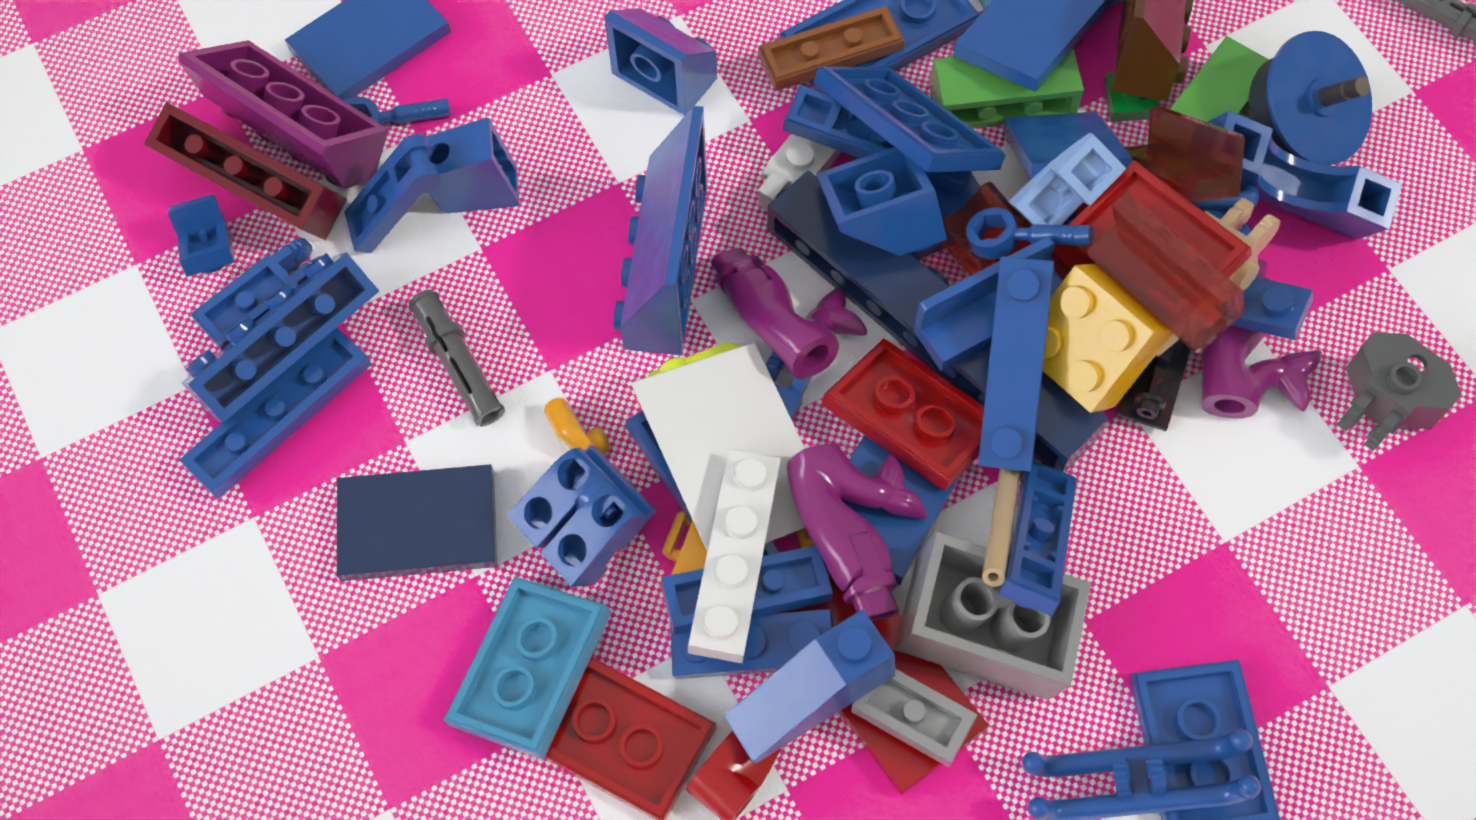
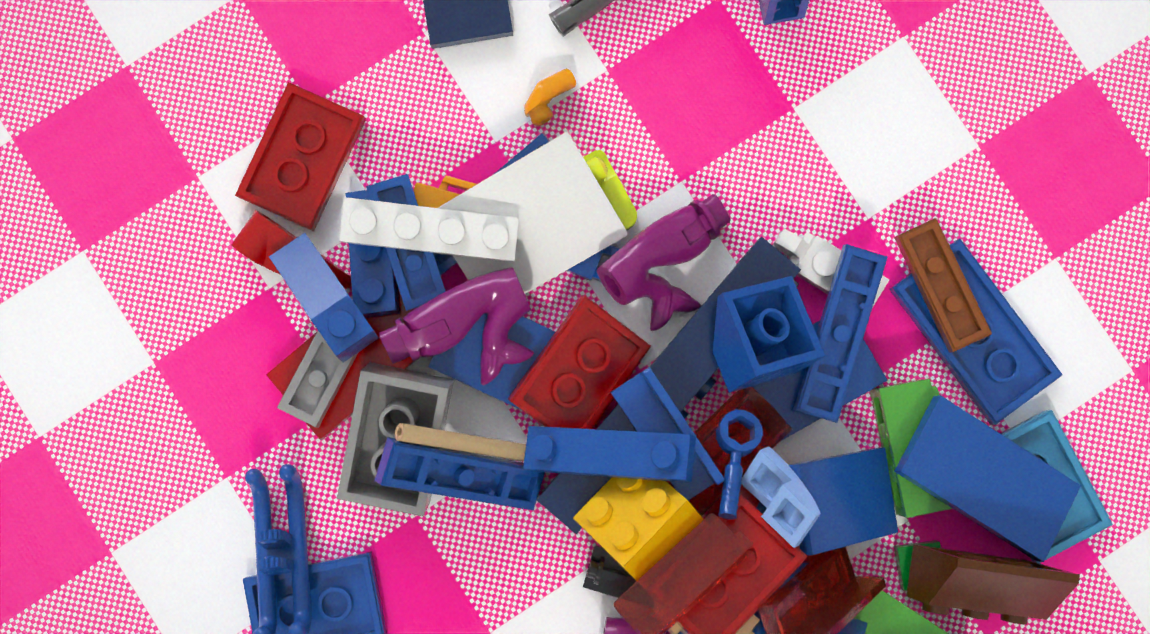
camera: 85 degrees right, 20 degrees up
(528, 667) = (345, 81): dark azure tile -> none
(581, 514) = (472, 112): blue hips -> none
(659, 58) = (919, 130): blue slope -> none
(665, 241) = (720, 152): blue slope -> none
(909, 119) = (855, 356): blue tile -> none

